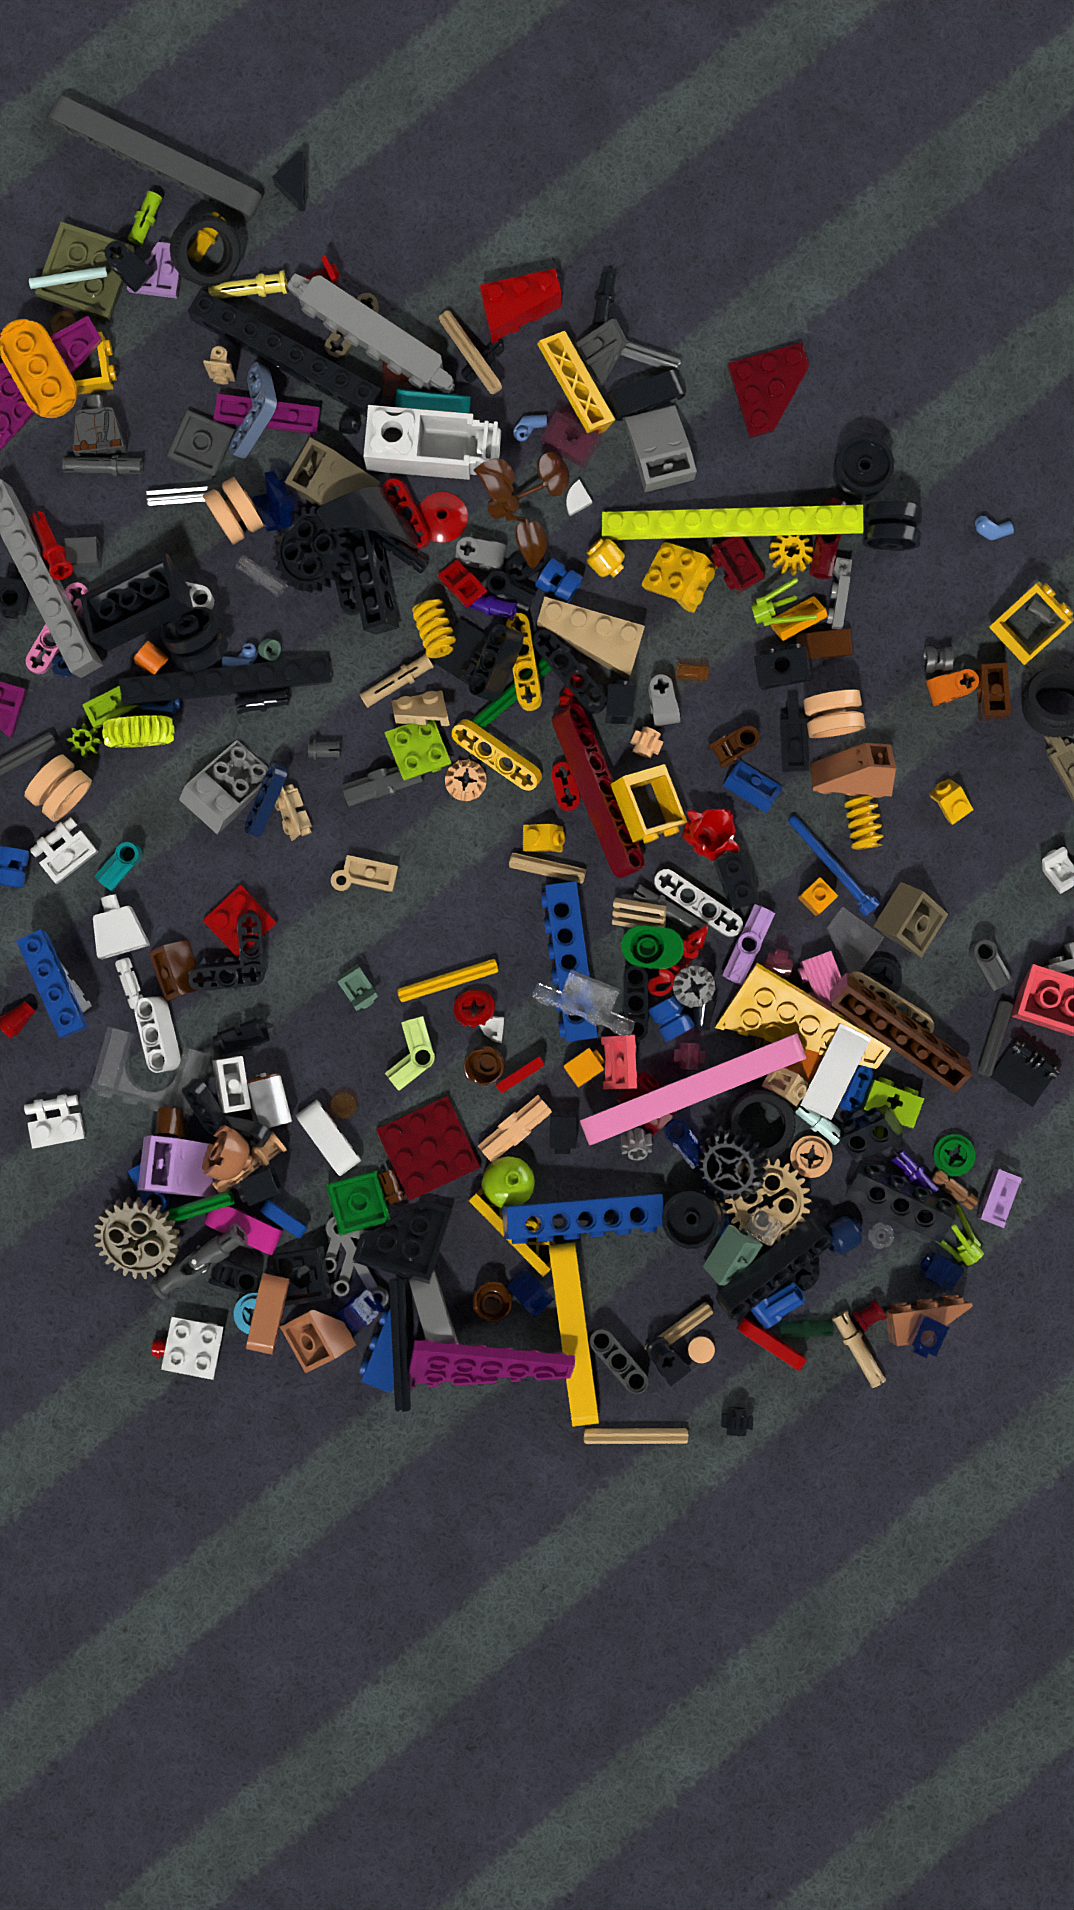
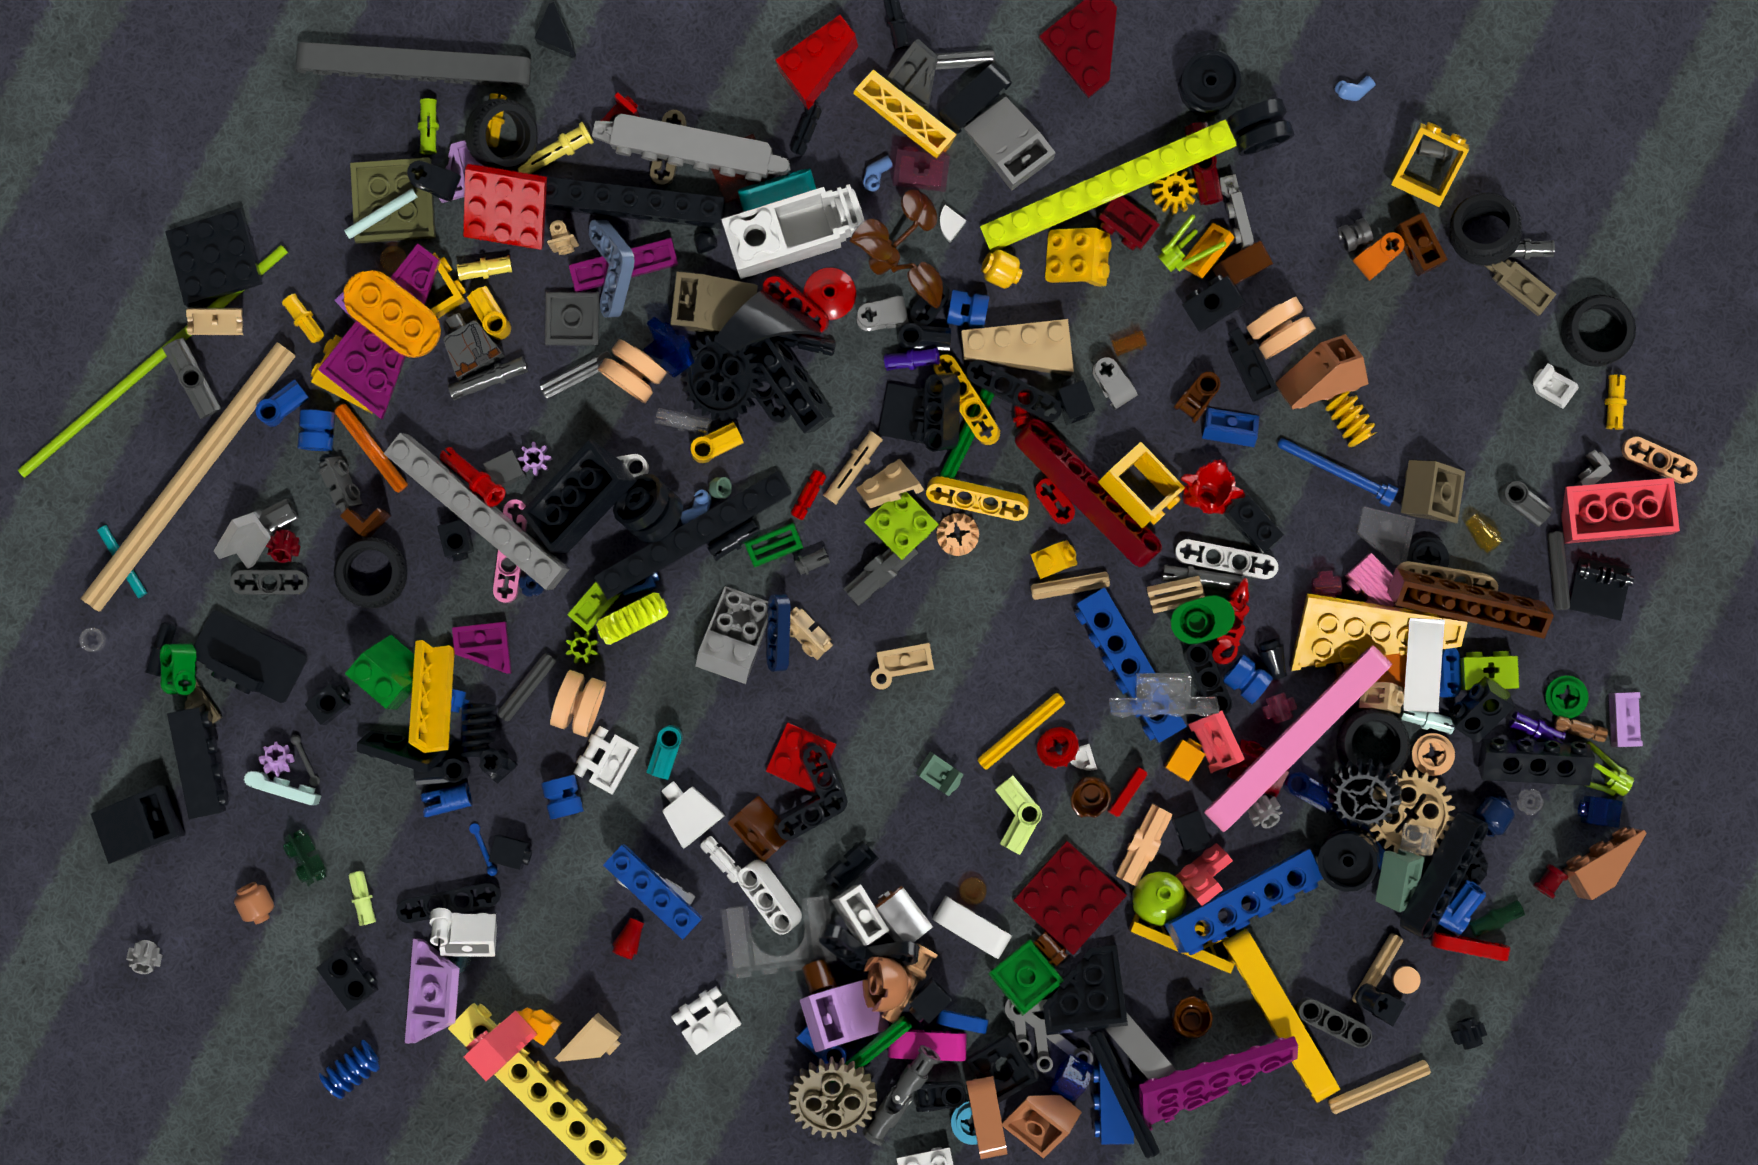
camera: 15 degrees left, 0 degrees up
(106, 551) = (526, 458): none -> lavender gear
(128, 406) = (489, 312): none -> yellow piece
(141, 365) = (484, 268): none -> light yellow pin
(150, 658) = (614, 544): orange piece -> none
(180, 315) = (504, 206): none -> plate
(285, 607) = (718, 441): none -> yellow piece
(296, 731) = (752, 554): none -> green tile
(346, 688) = (808, 494): none -> red axle
(433, 629) = (867, 404): yellow piece -> none
(461, 583) = (877, 350): red slope -> none
(470, 352) = (792, 126): tan axle -> none
(530, 1293) = (1224, 994): clear blue brick -> none
(551, 1176) = (1199, 875): none -> coral plate
(646, 742) = (1114, 427): light nougat gear -> none
(682, 983) = (1246, 641): light grey gear -> none
(756, 929) = (1290, 561): lavender piece -> none
(817, 896) = (1337, 506): light orange brick -> none
(853, 1338) = (1545, 910): tan pin -> none
(939, 1333) = (1608, 870): clear blue brick -> none
(941, 977) = (1483, 533): none -> clear yellow cone
(951, 800) = (1423, 363): yellow bracket -> none

